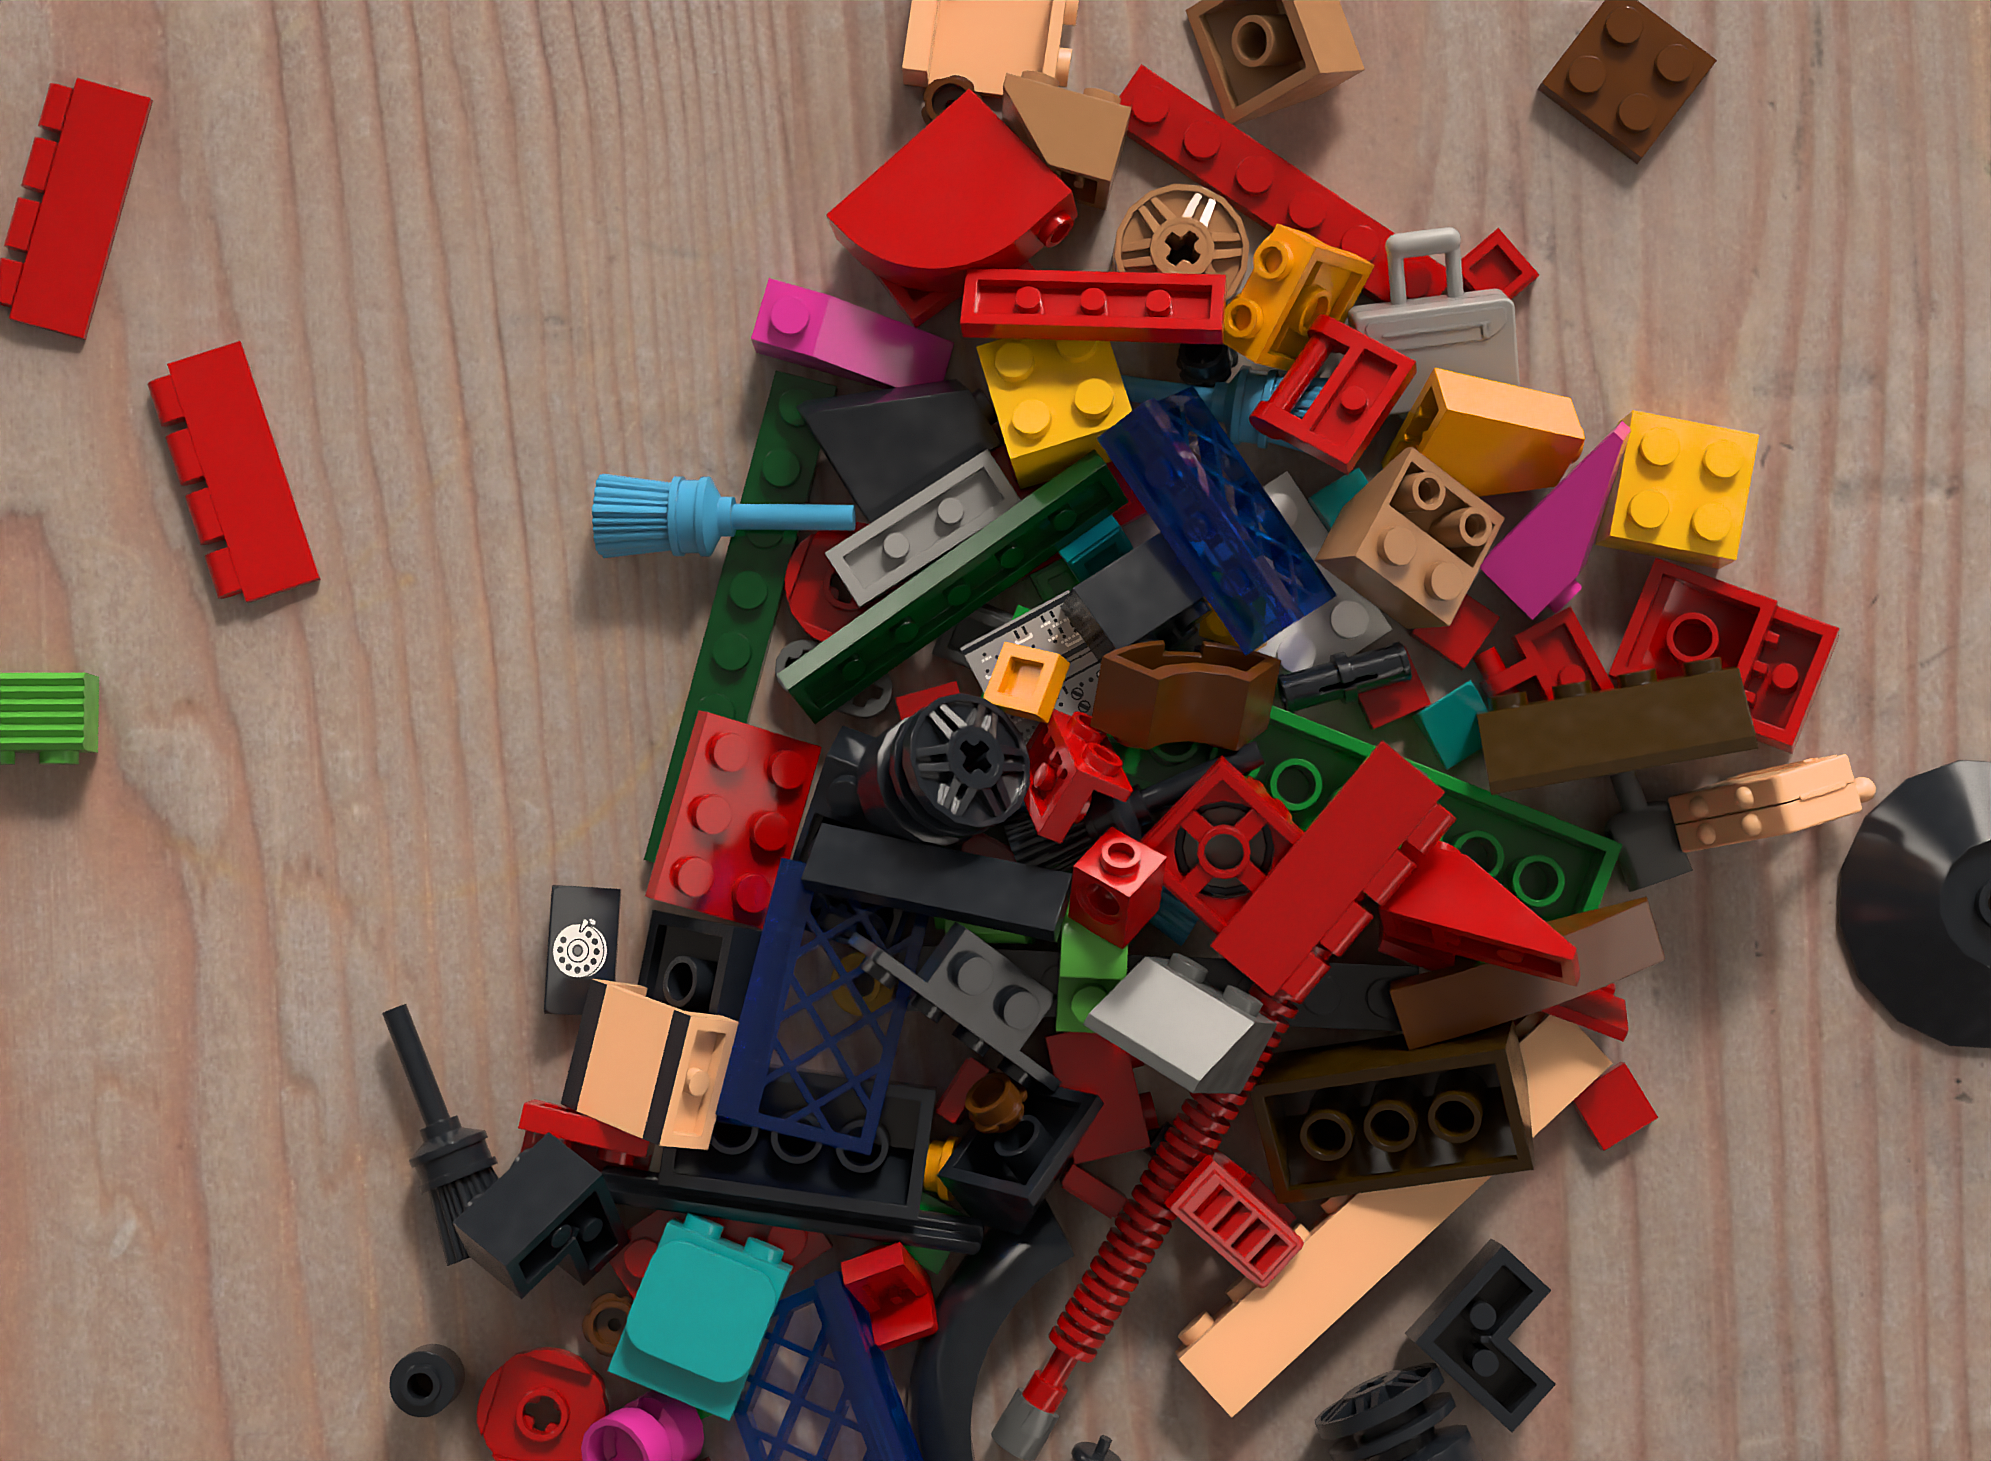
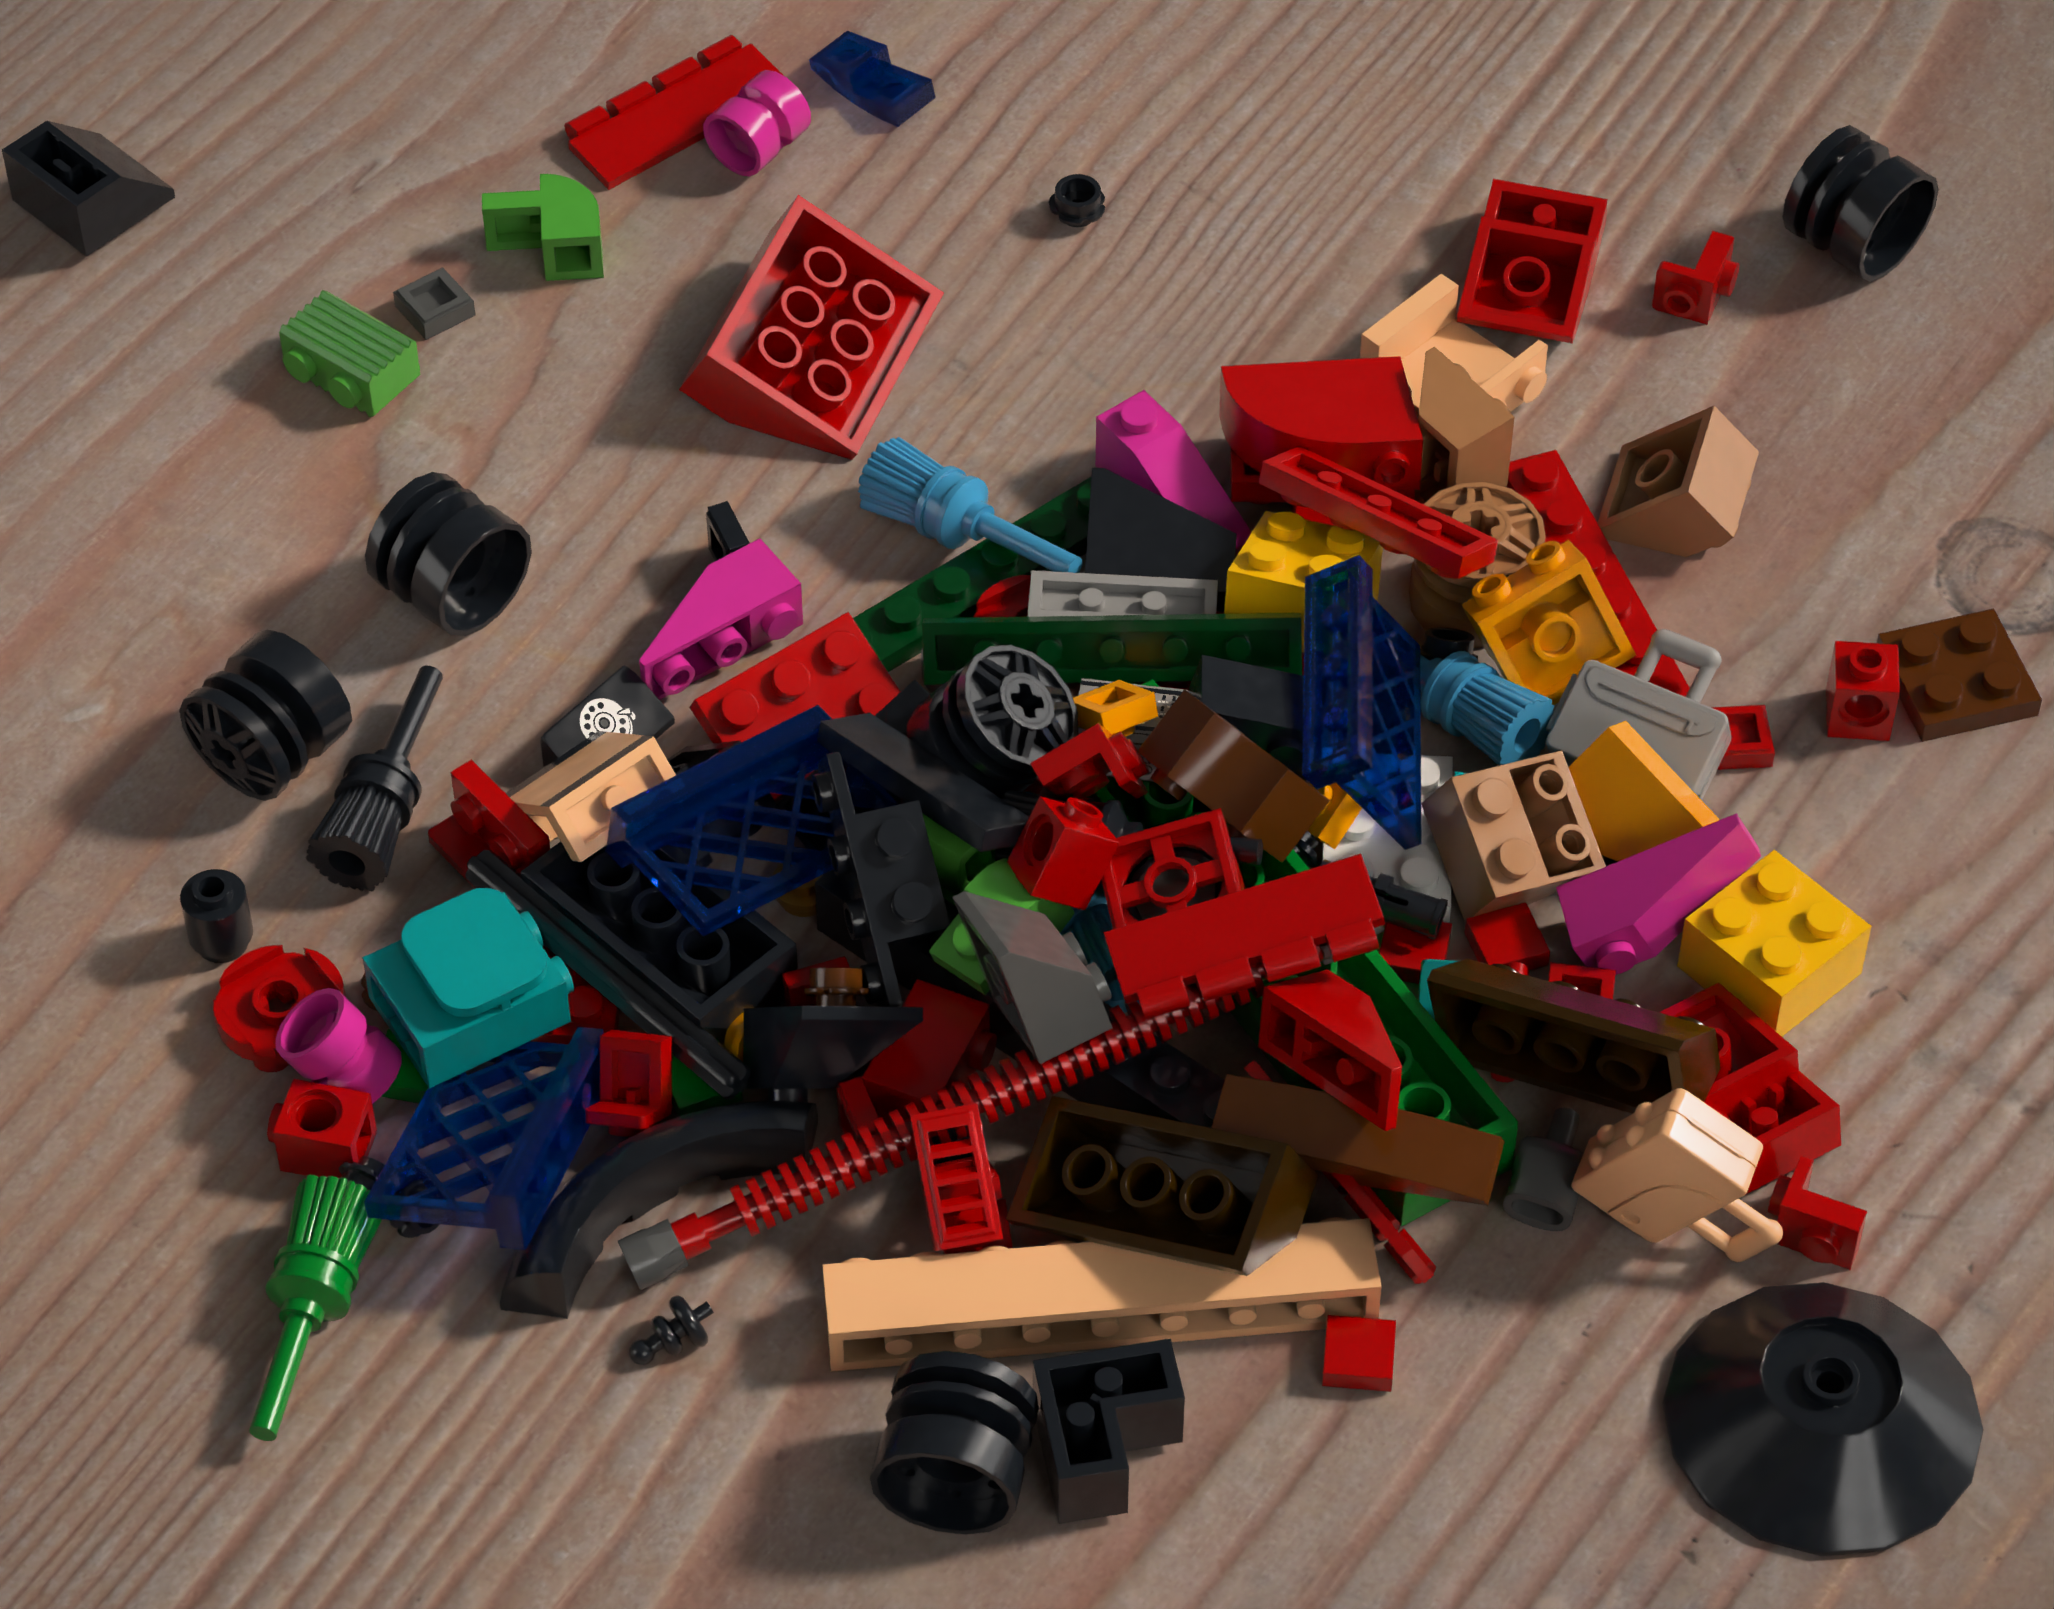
camera: 40 degrees right, 35 degrees down
(45, 591) = (434, 303): none -> dark grey tile
(87, 424) = (557, 218): none -> bright green brick
(170, 185) = (757, 123): none -> dark pink wheel
(220, 41) = (864, 75): none -> clear blue slope
(246, 482) = (635, 316): red windscreen -> none
(298, 889) = (448, 553): none -> black wheel
(304, 1171) = (266, 714): none -> black wheel
(414, 396) = (813, 335): none -> red slope
(518, 48) = (1077, 200): none -> black plate
(528, 686) = (724, 531): none -> black tile
(543, 1215) = (419, 821): black brick -> none
(585, 758) = (725, 615): none -> dark pink slope
(1349, 404) = (1527, 684): red plate -> none
(1575, 162) = (1862, 690): none -> red brick
(1888, 745) = (1814, 1223): none -> red bracket

